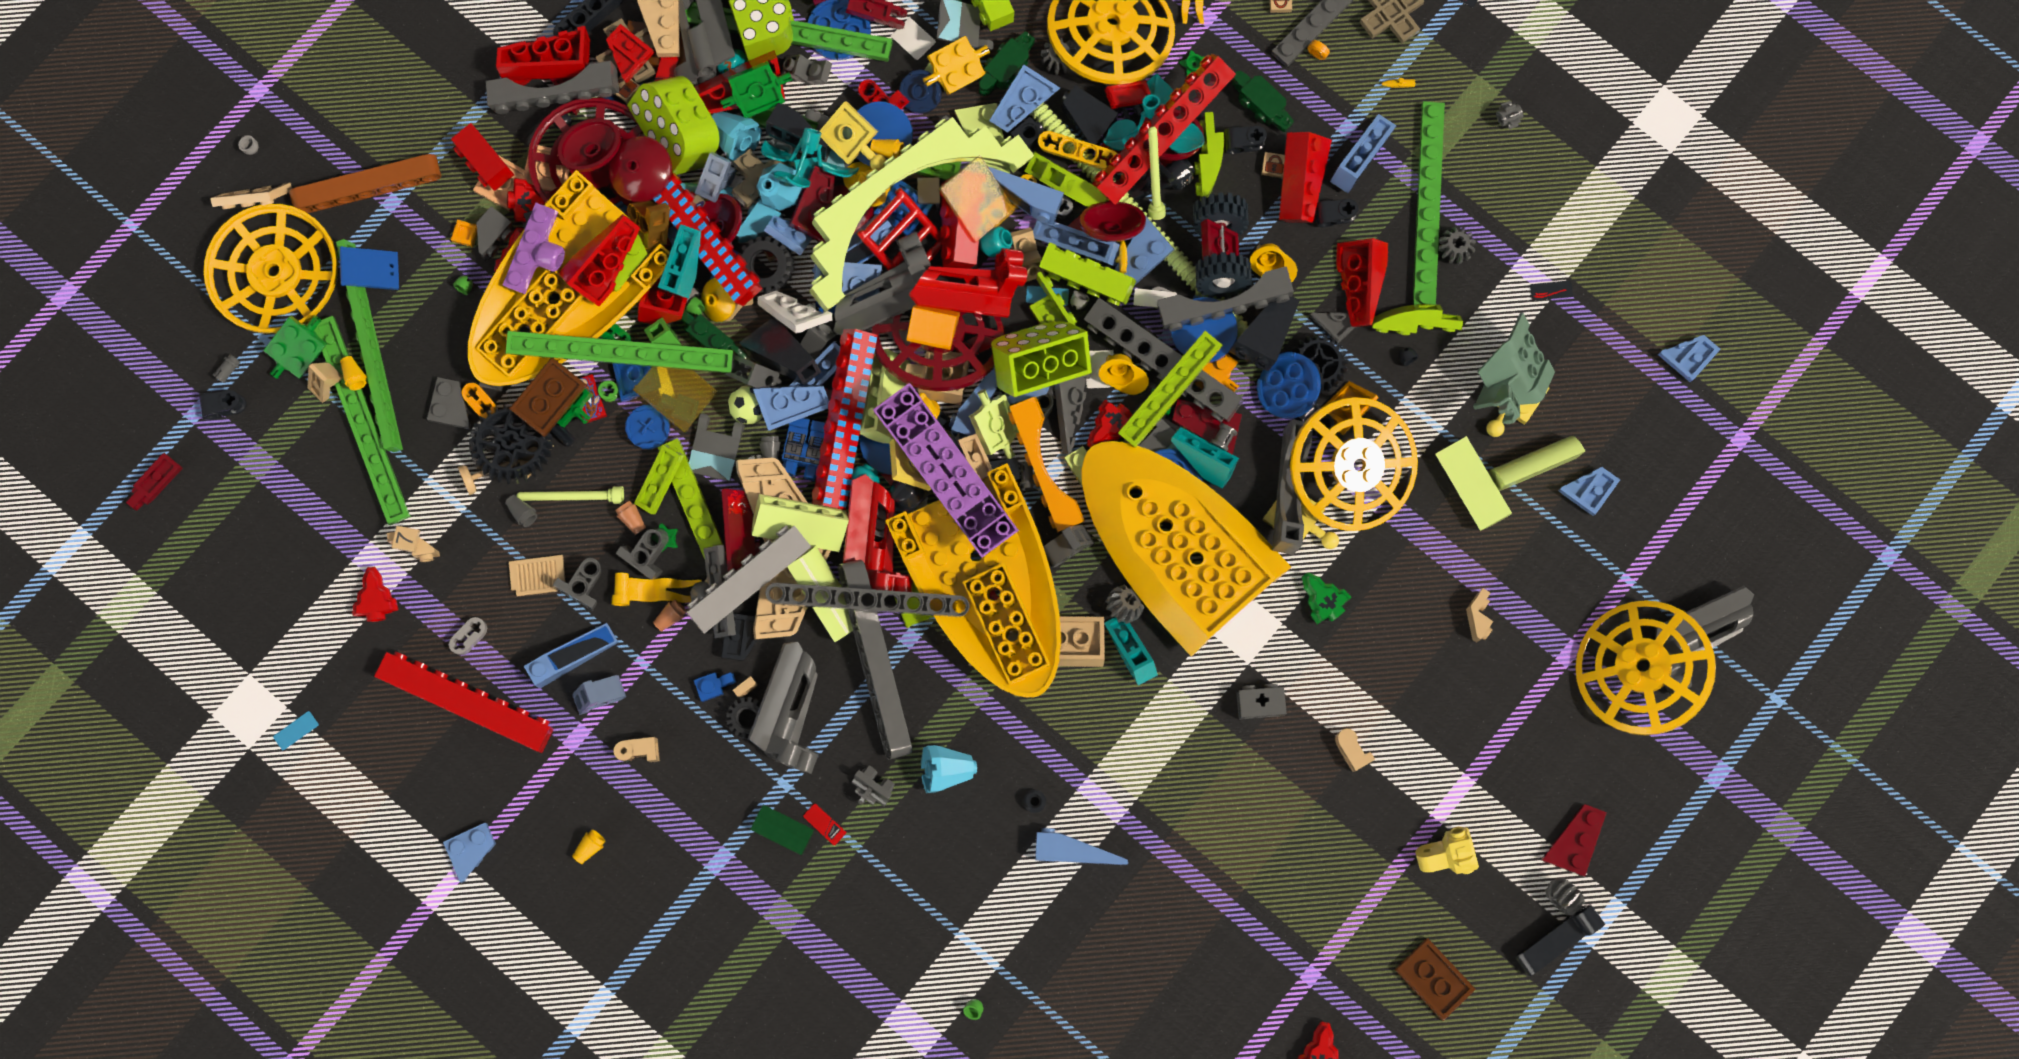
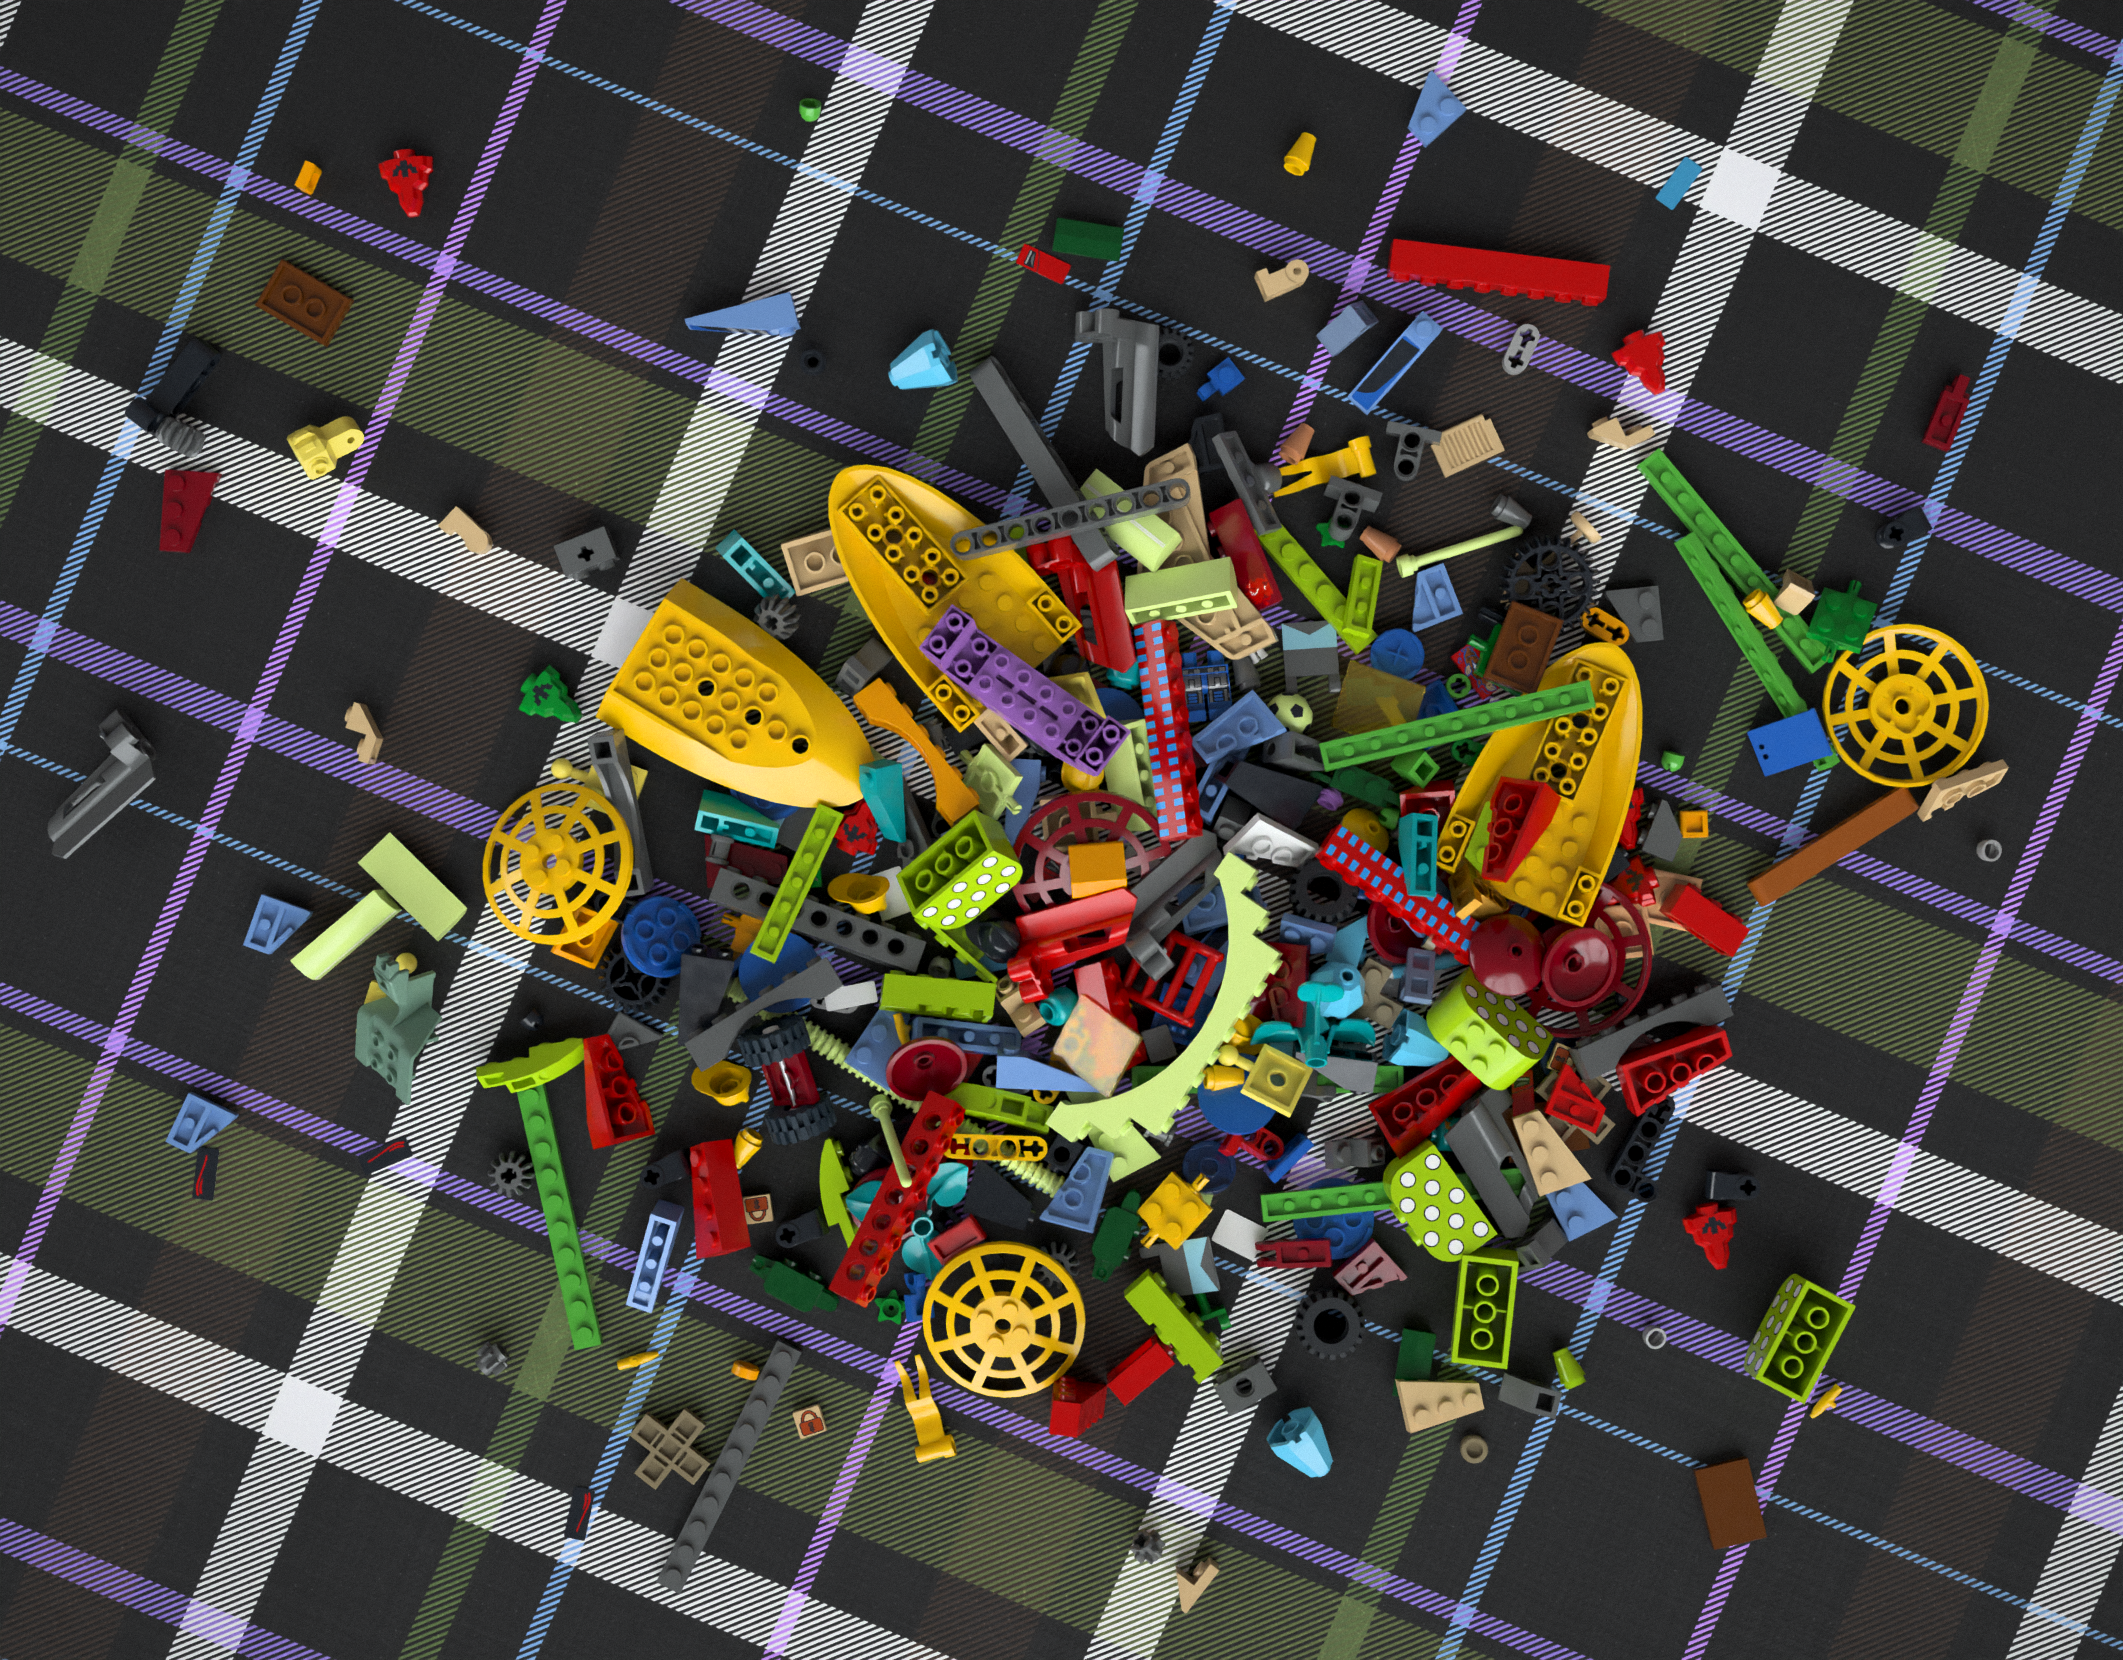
camera: 170 degrees right, 10 degrees up
(226, 368) = (1913, 573): dark grey pin -> none
(405, 539) = (1630, 432): tan tile -> none
(534, 250) = (1598, 814): medium lavender plate -> none
(604, 462) = (1433, 598): none -> medium blue wing
(736, 334) = (1330, 799): none -> medium lavender plate
(745, 687) = (1182, 387): tan tile -> none
(747, 579) = (1216, 501): light grey brick -> none
(756, 89) = (1403, 1099): green plate -> none
(849, 80) = (1293, 1152): none -> blue tile
(869, 789) = (989, 316): dark grey hips -> none
(1029, 308) = (994, 935): none -> black piece
(1081, 440) = (883, 791): none -> teal slope
(1172, 63) = (915, 1300): none -> blue plate
(1268, 213) = (746, 1145): none -> yellow cone
(1651, 679) = (144, 740): yellow dish -> none
(1695, 318) = (205, 1173): none -> black sticker

